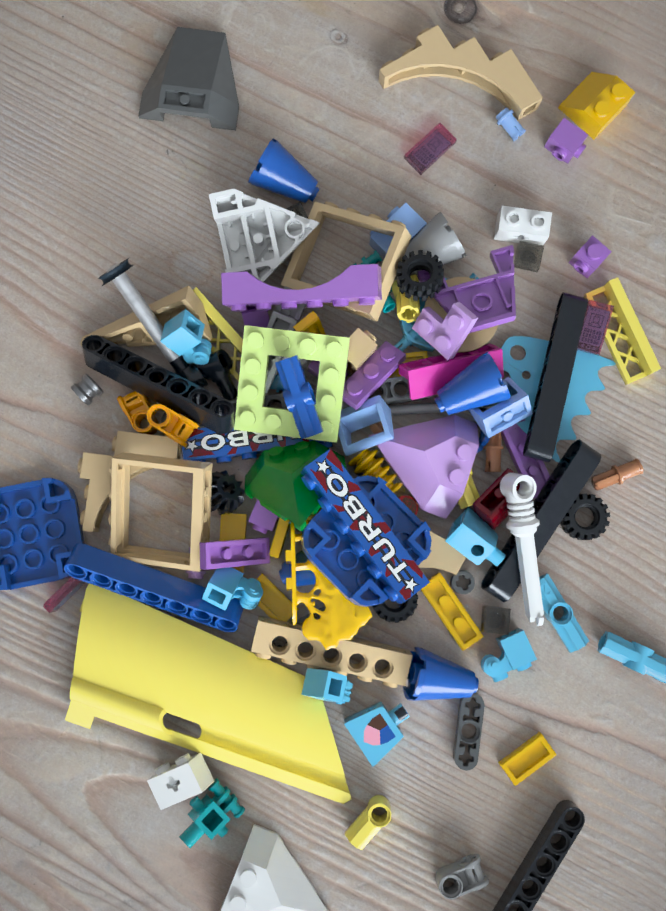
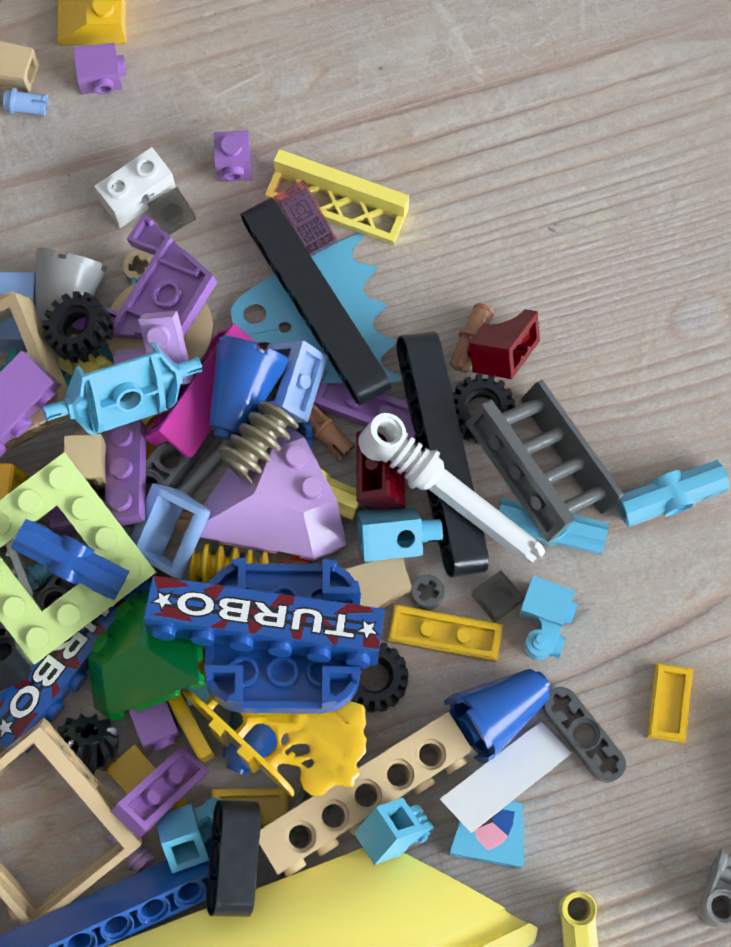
camera: 45 degrees left, 10 degrees down
(236, 623) = (233, 858): none -> black beam
(392, 325) = (96, 396): none -> medium azure plate
(408, 715) = (505, 777): none -> white sticker
(452, 425) = (256, 440): none -> dark tan piece
(483, 262) = (131, 259): none -> tan bush
(571, 576) = (524, 475): none -> dark grey fence
(627, 497) = (504, 346): none -> dark red arch

